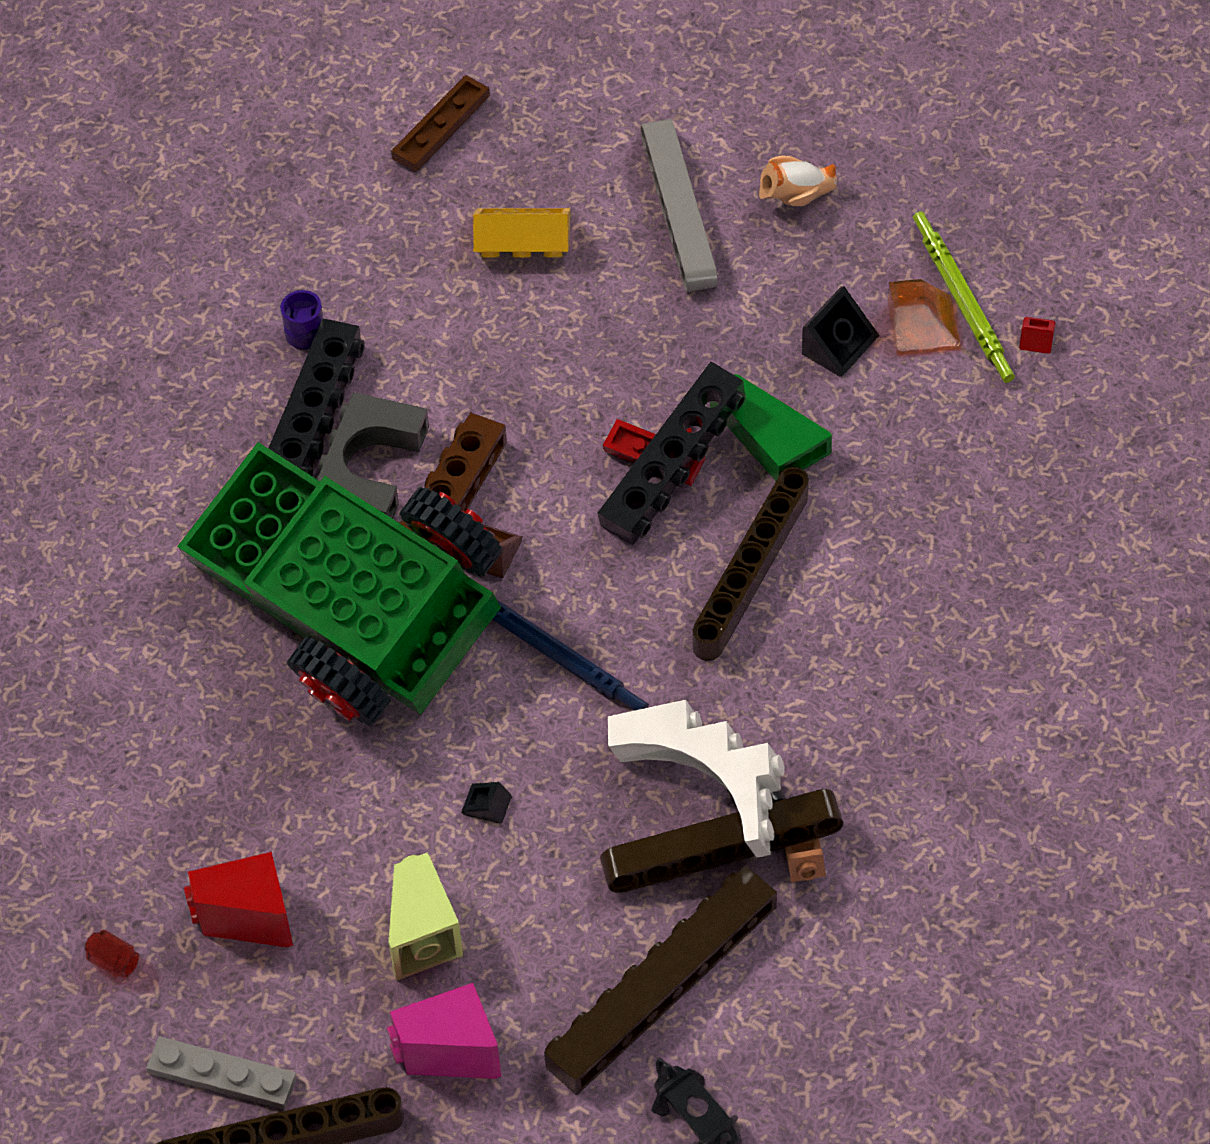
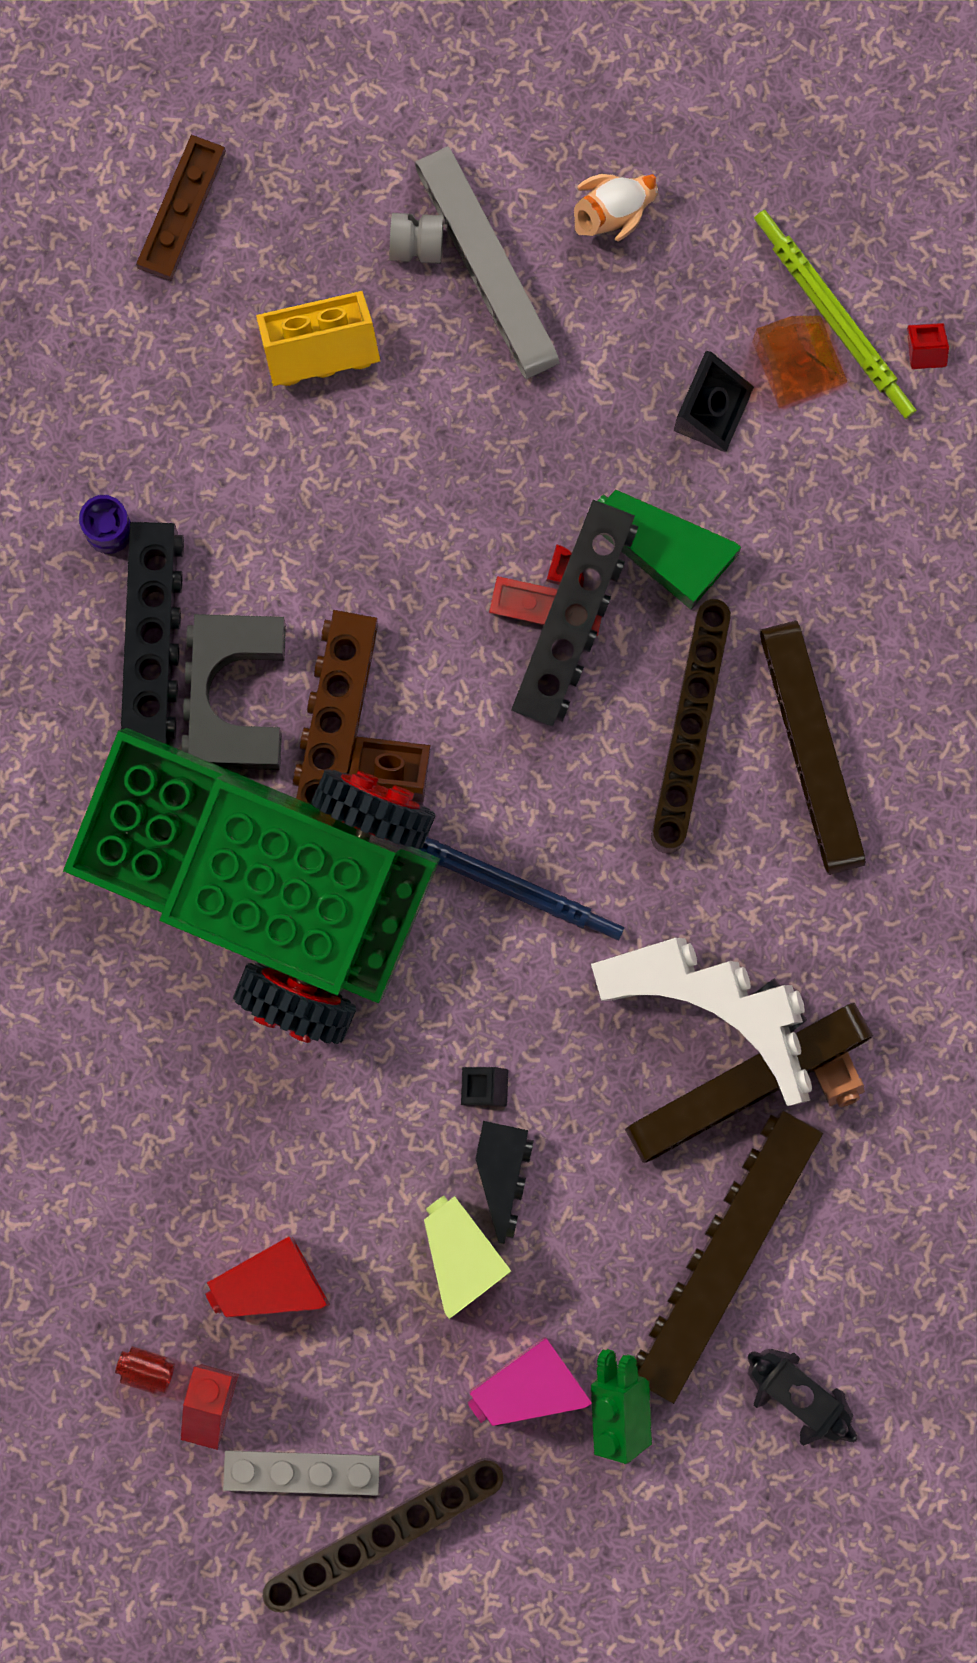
camera: 20 degrees left, 25 degrees up
(156, 983) = (207, 1405): none -> red slope
(480, 859) = (499, 1165): none -> black slope
(525, 1066) = (620, 1409): none -> green hinge
(630, 176) = (416, 238): none -> light grey wheel
(854, 602) = (812, 747): none -> dark brown beam

